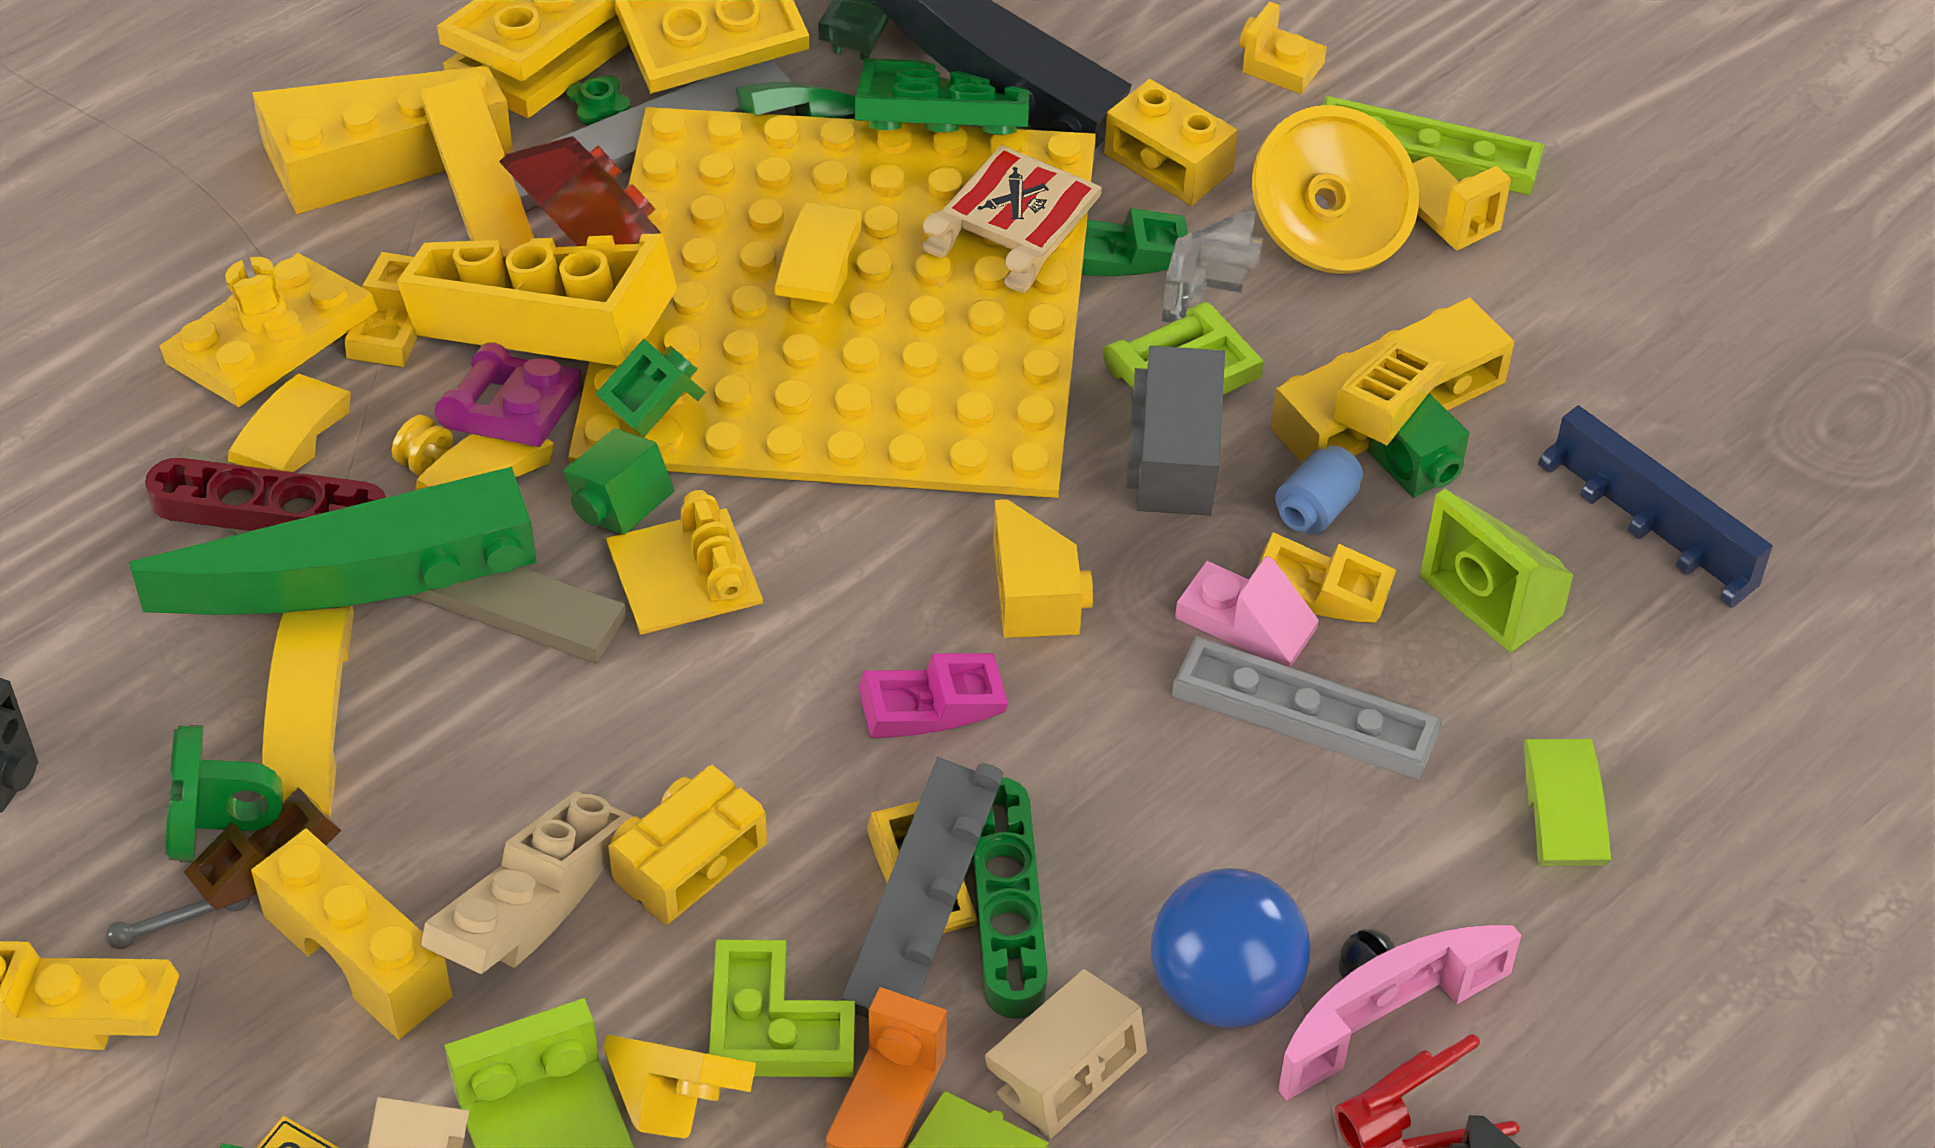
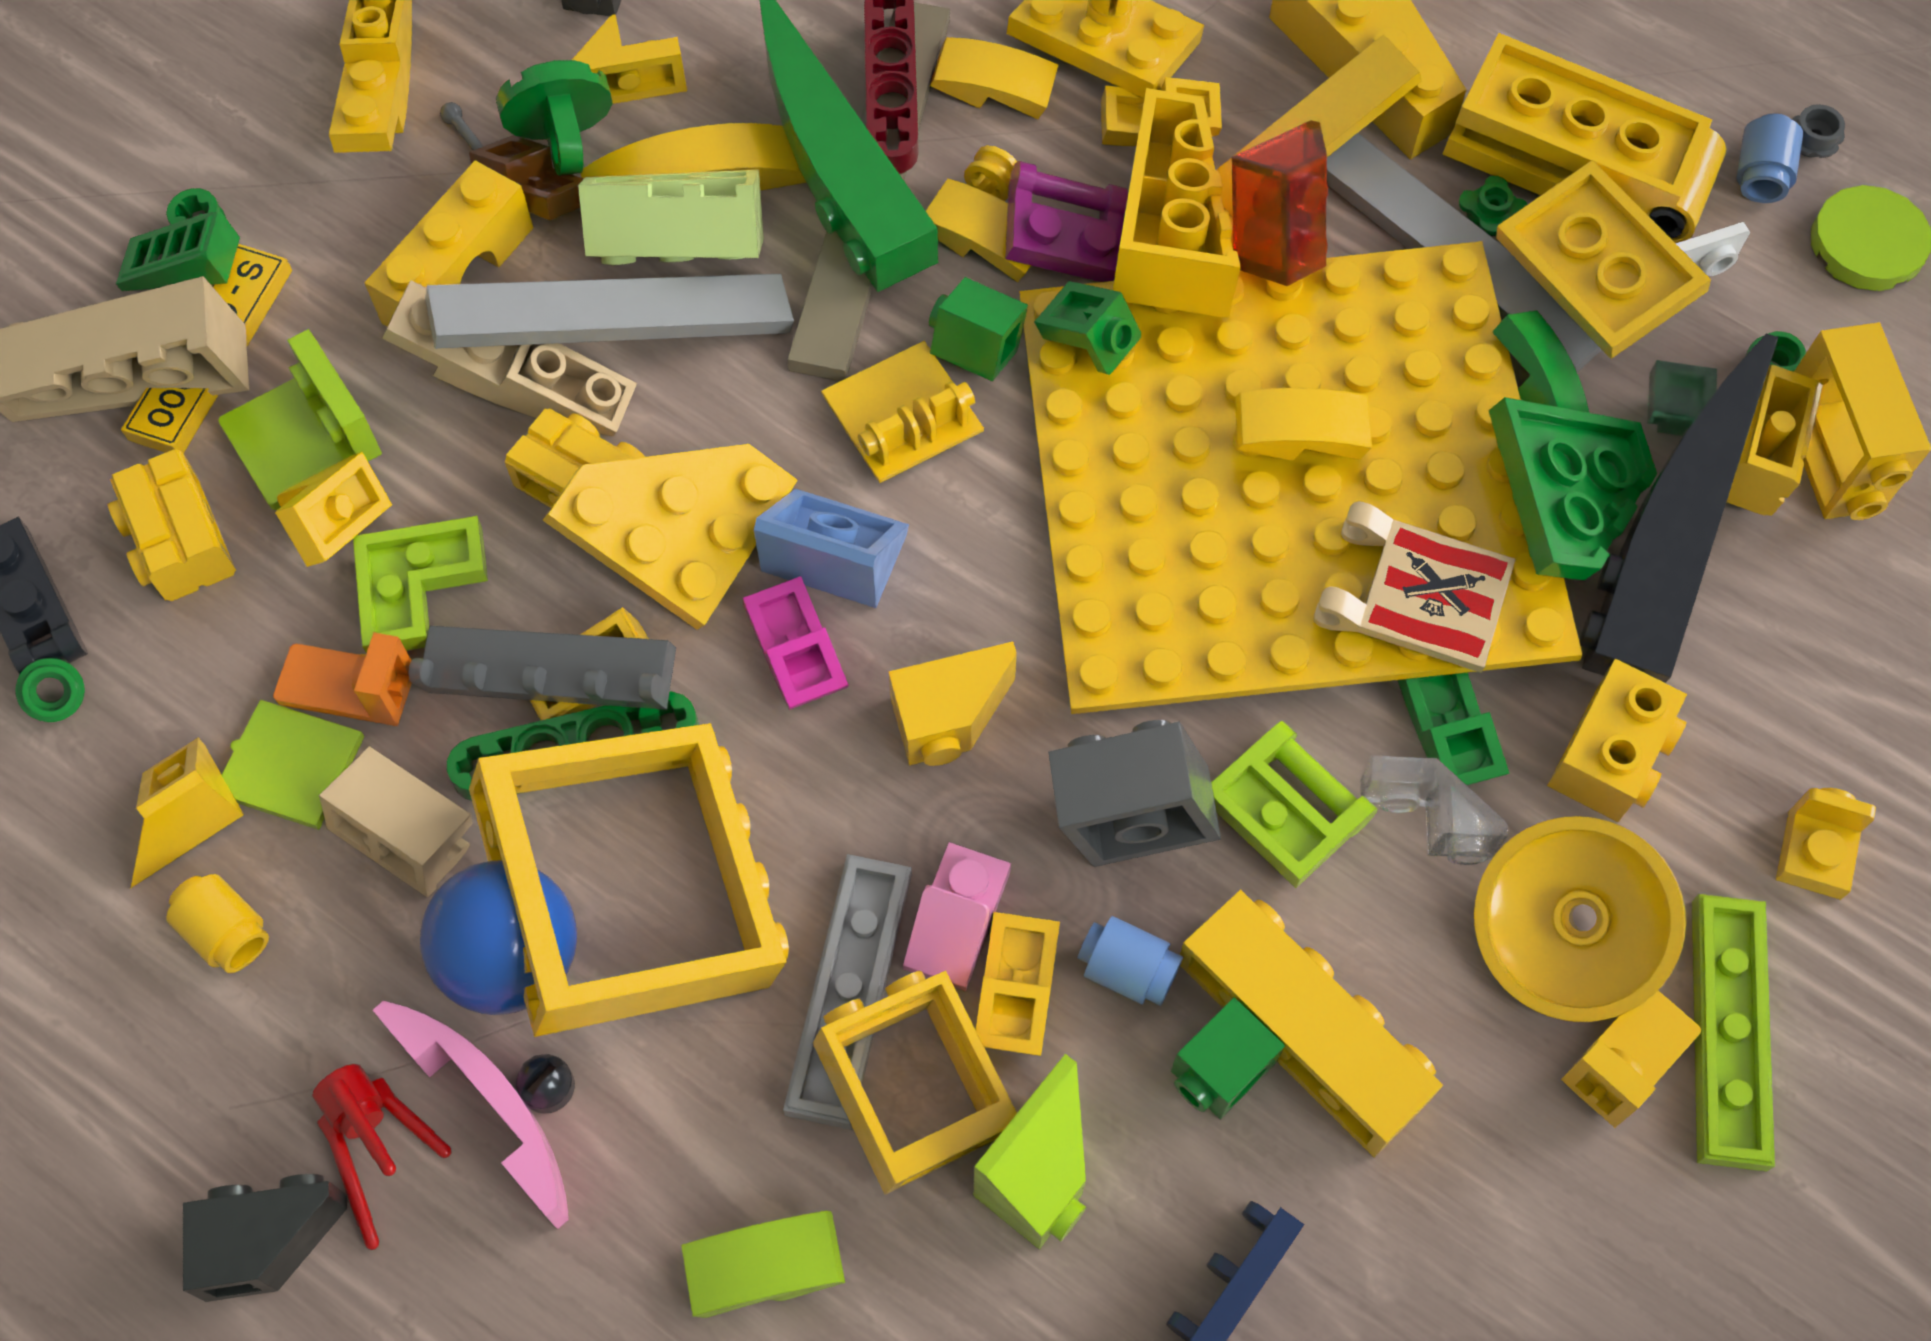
camera: 80 degrees right, 15 degrees up
(138, 750) = (634, 69): none -> yellow slope
(395, 696) = (672, 216): none -> yellowish green wedge
(504, 775) = (606, 310): none -> light grey tile
(781, 756) = (673, 520): none -> yellow plate
(833, 642) = (829, 546): none -> medium blue slope
(1170, 765) = (561, 1007): none -> yellow window
(1382, 418) = (1226, 1017): yellow slope -> none
(1444, 605) = (905, 998): none -> yellow window

